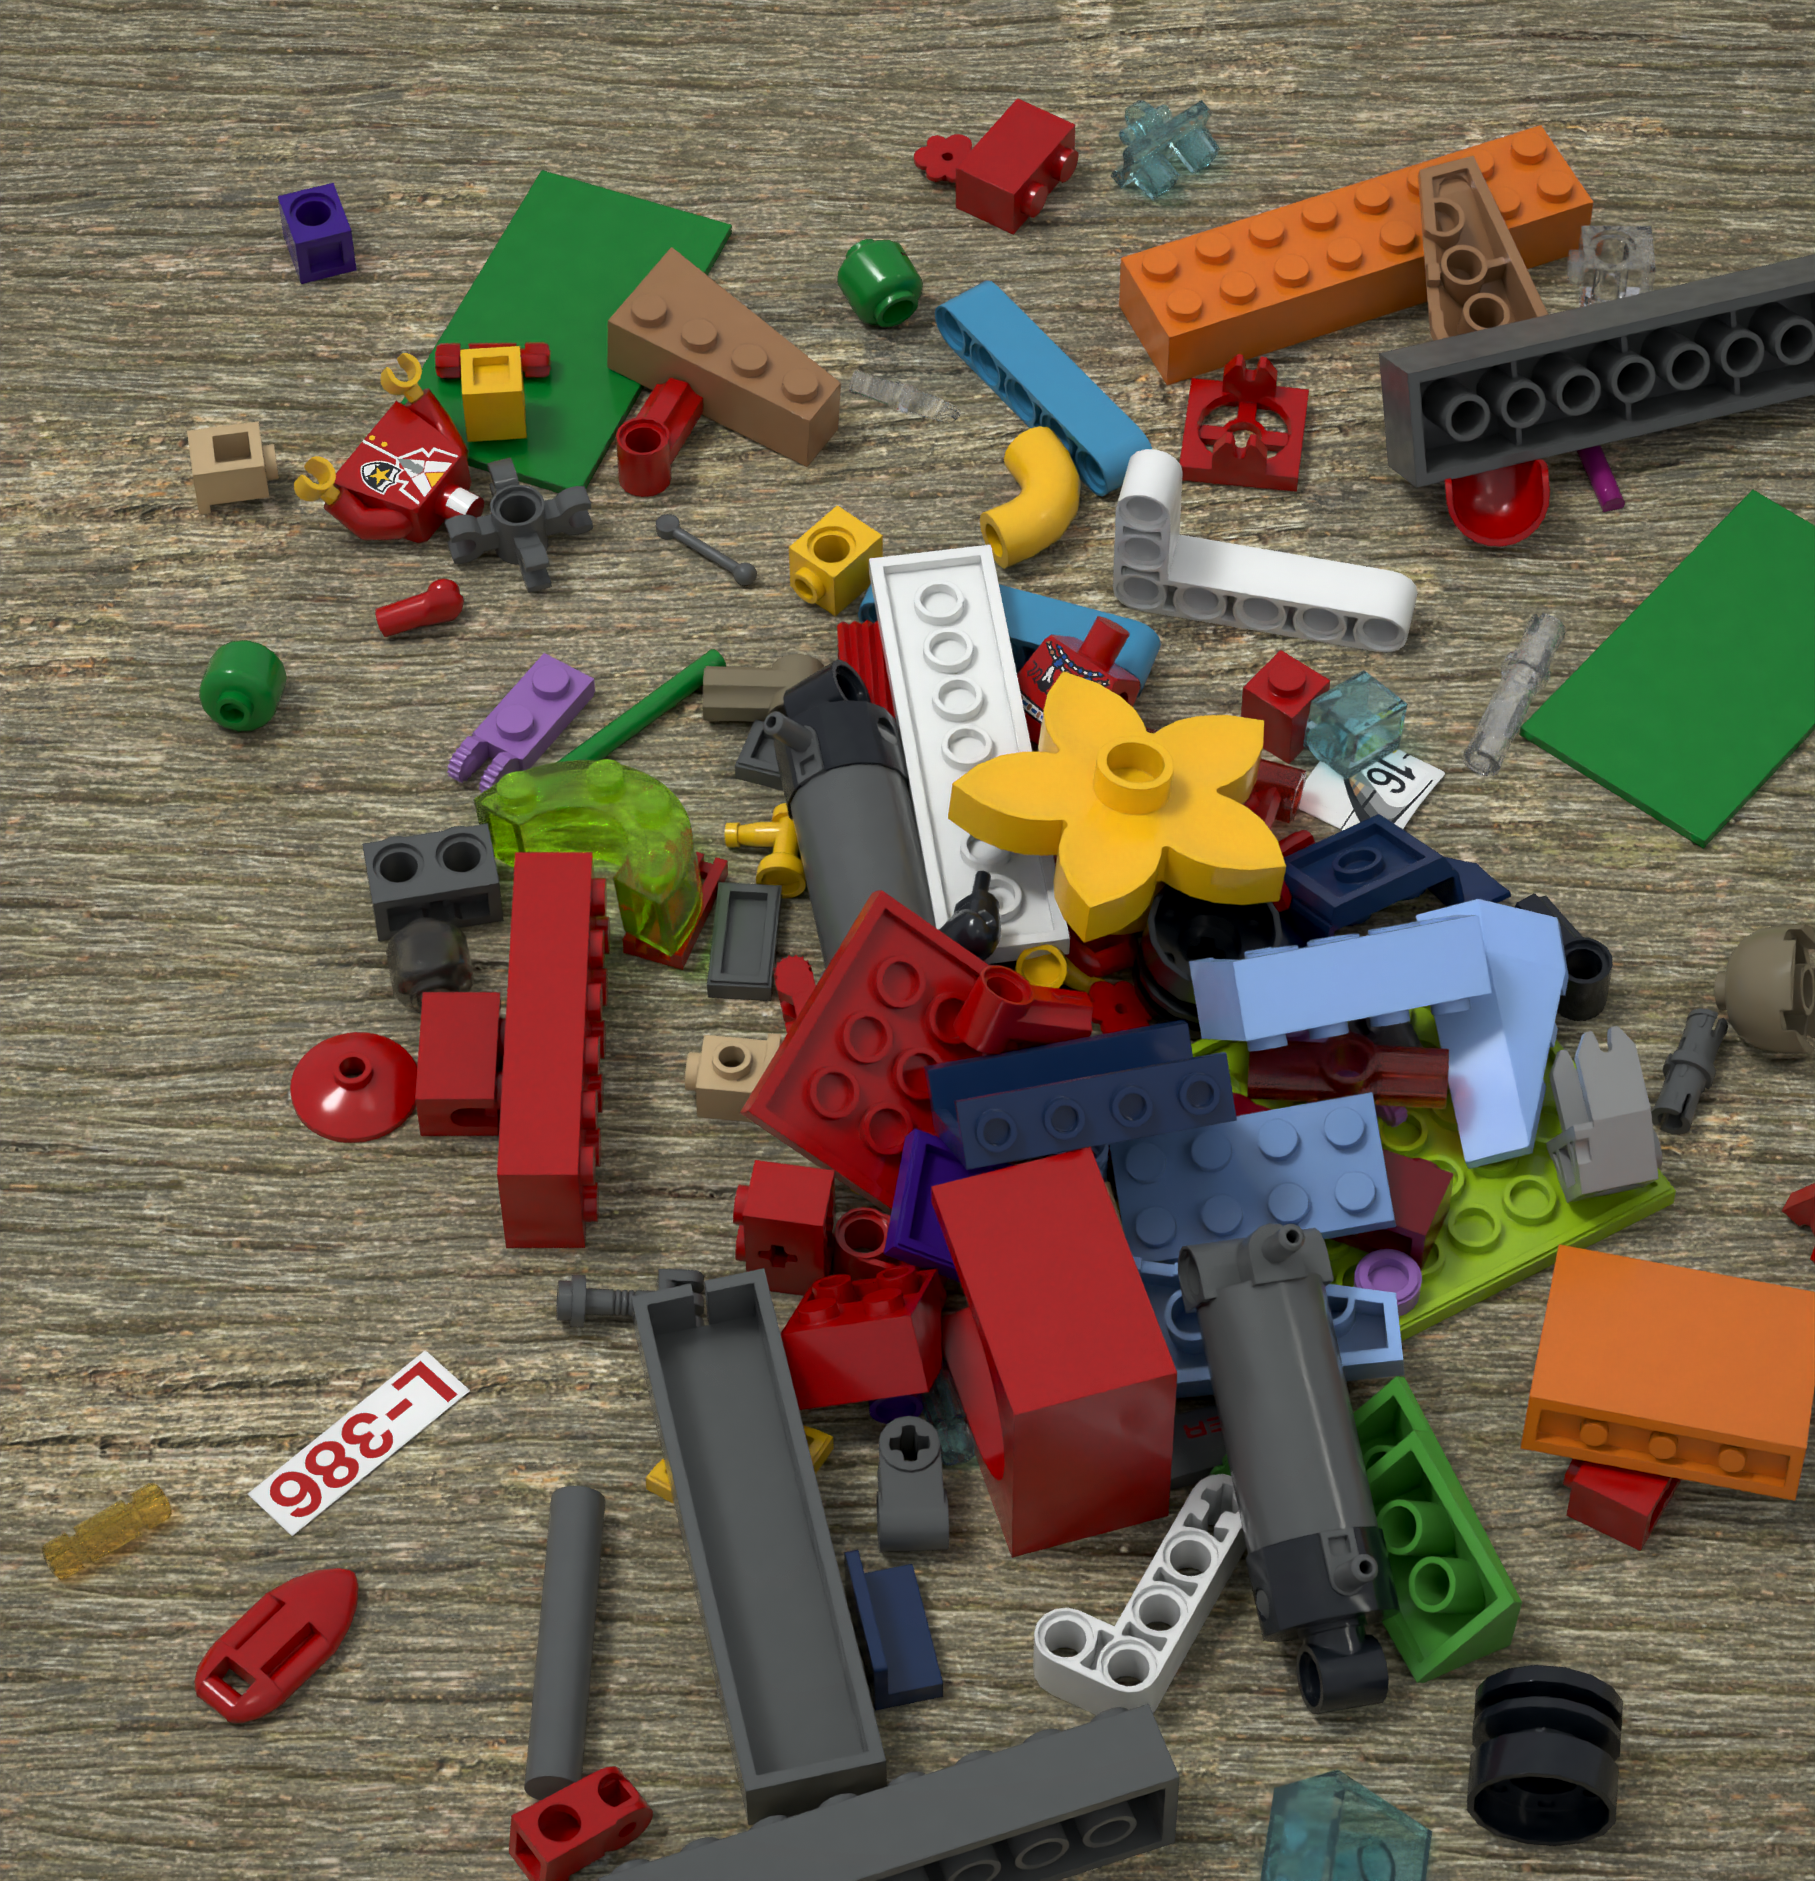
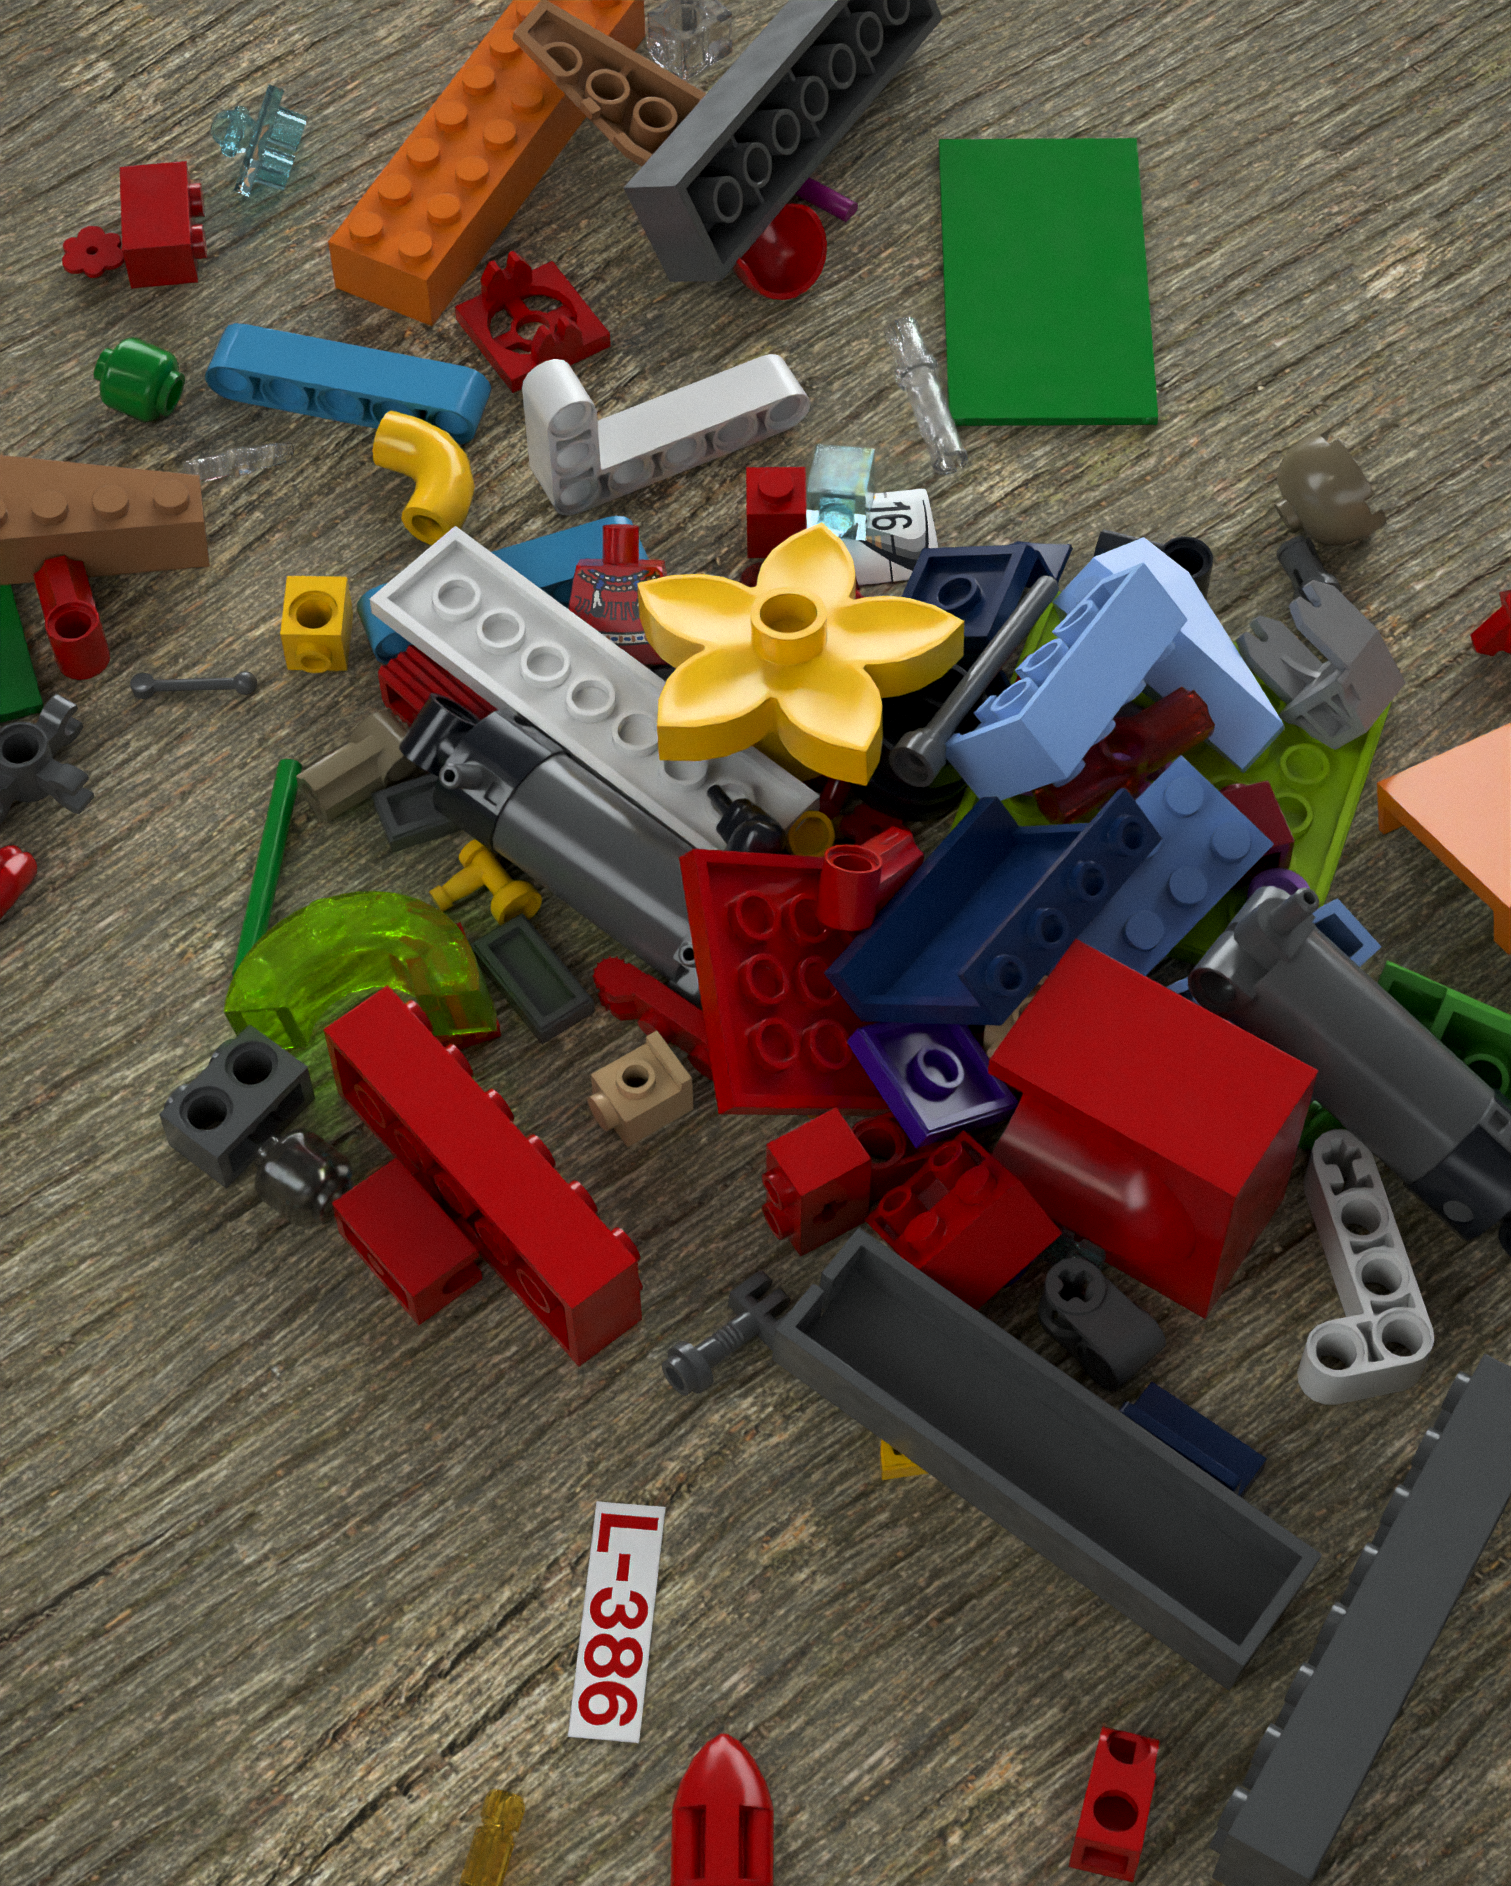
camera: 40 degrees left, 5 degrees up
(358, 1106) = (329, 1350): red dish -> none
(524, 722) = (181, 922): medium lavender hinge -> none
(565, 1641) = (956, 1658): dark grey piece -> none
(1165, 952) = (922, 752): none -> dark grey piece

